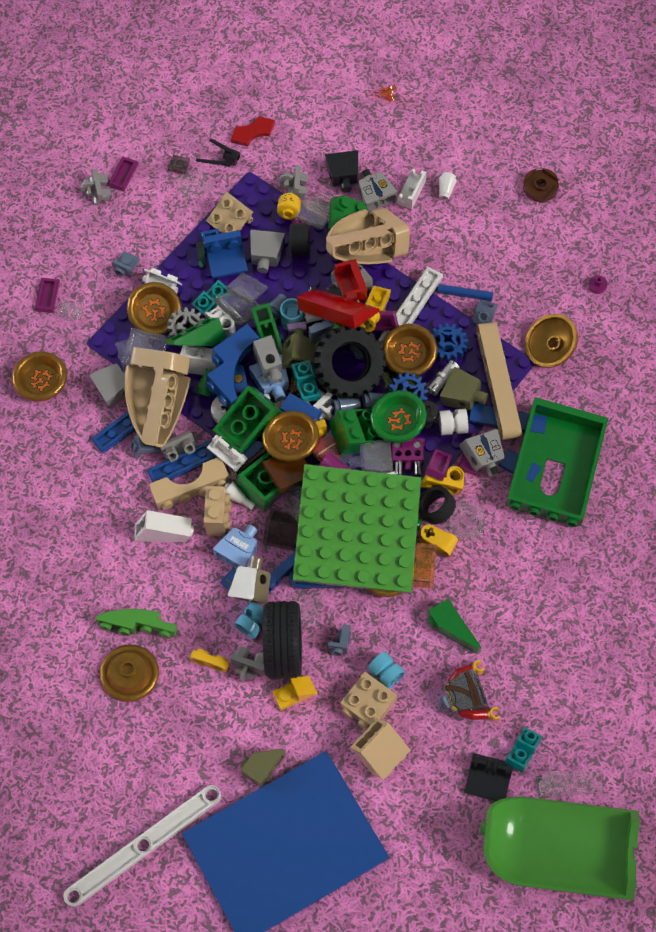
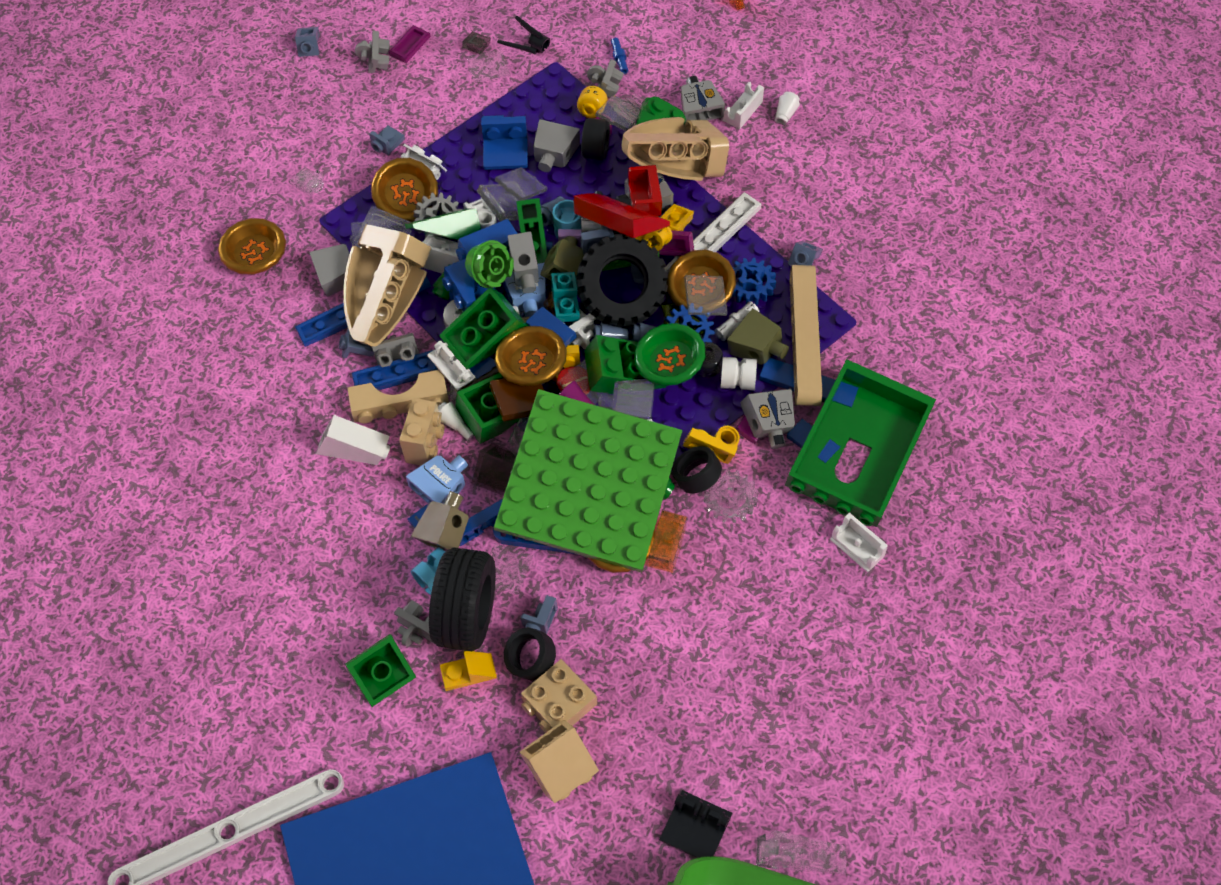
camera: 10 degrees right, 5 degrees down
(37, 184) = (307, 41): none -> sand blue bracket
(47, 295) = (287, 160): magenta tile -> none
(129, 620) = (285, 546): bright green slope -> none
(129, 673) = (268, 611): pearl gold piece -> none
(201, 254) = (475, 140): tile -> none
(205, 300) = (468, 191): teal slope -> none
(214, 662) = (377, 616): yellow plate -> none
(229, 704) = (380, 670): none -> green slope
(230, 214) = (521, 100): tan hinge -> none
(243, 367) = (489, 263): none -> bright green cone
(245, 134) = (562, 21): red tile -> none
(262, 765) = (403, 756): olive slope -> none
(300, 158) = (619, 55): none -> blue bar
(343, 169) = (666, 72): black torso -> none
(353, 673) = (513, 649): none -> black tyre
(384, 668) = (588, 661): medium azure wheel -> none
(412, 448) = (674, 402): magenta piece -> none
(416, 362) = (705, 295): none -> clear piece
(438, 464) = (709, 421): magenta tile -> none
(444, 540) = (698, 514): yellow piece -> none
(451, 625) = (686, 621): green slope -> none
(465, 292) = (784, 229): blue piece -> none
(467, 695) = (687, 712): torso -> none
(523, 749) = (748, 797): teal slope -> none
(544, 193) = (901, 133): reddish brown plate -> none
(545, 334) = (874, 291): pearl gold dish -> none
(569, 541) = (859, 542): none -> white hinge
(597, 284) = (951, 244): magenta tile -> none

